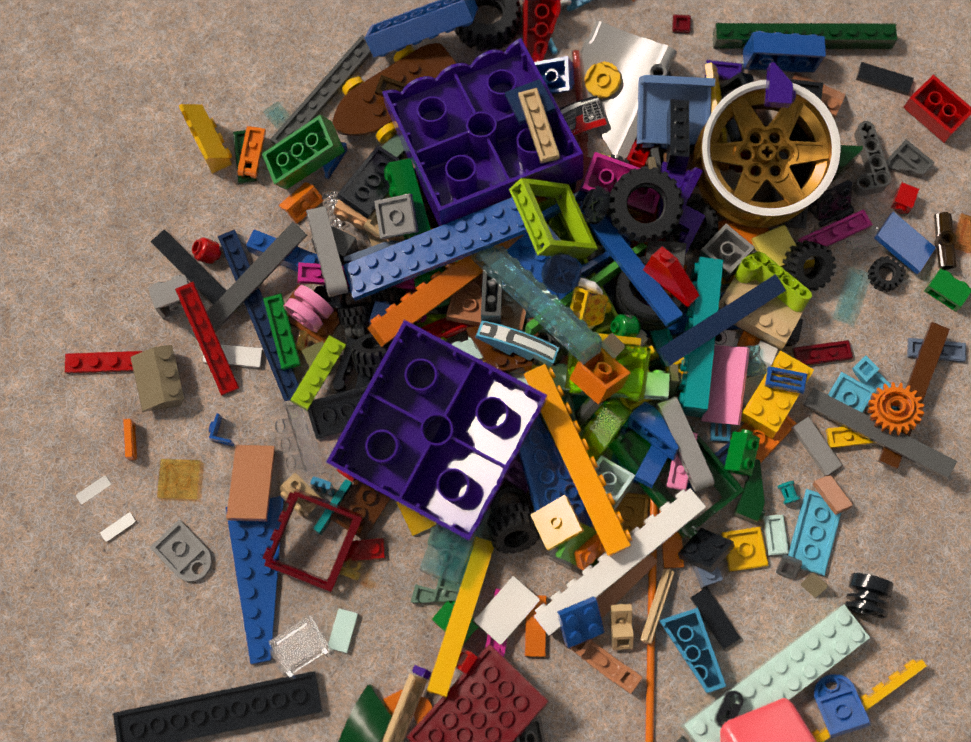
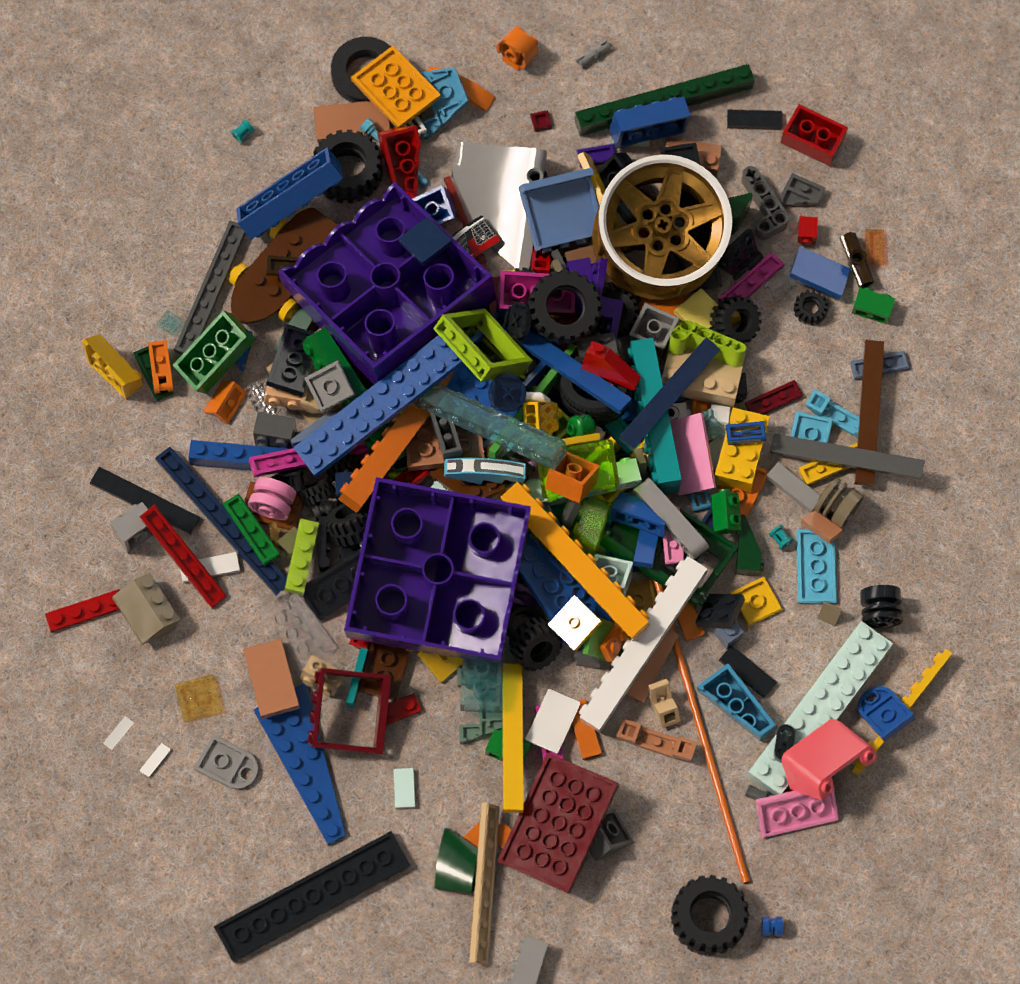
camera: 20 degrees left, 5 degrees down
(130, 439) = (138, 674): orange tile -> none
(206, 250) = (149, 474): red head -> none
(213, 430) = (223, 649): blue bracket -> none
(255, 275) = (208, 484): dark grey tile -> none
(299, 646) = (369, 812): clear panel -> none
(323, 485) = (341, 659): dark azure tile -> none
(327, 251) = (274, 438): light grey beam -> none
(350, 572) = (394, 733): clear yellow tile -> none
(422, 672) = (493, 800): dark purple tile -> none
(465, 660) = (530, 775): red tile -> none
(538, 125) = (441, 261): tan tile -> none
(580, 622) = (625, 708): blue plate -> none
(602, 79) = (482, 198): yellow tile -> none
(613, 345) = (575, 445): dark tan slope -> none
(657, 606) = (691, 675): tan axle -> none
(677, 135) = (573, 232): black brick -> none
(775, 535) = (780, 580): light aqua tile -> none
(778, 88) = (655, 164): dark purple slope -> none
(789, 566) = (801, 604): dark grey tile -> none
(850, 295) = (783, 337): clear light blue tile -> none
(857, 476) = (838, 502): none -> dark tan wheel
(900, 420) = (868, 431): orange gear -> none

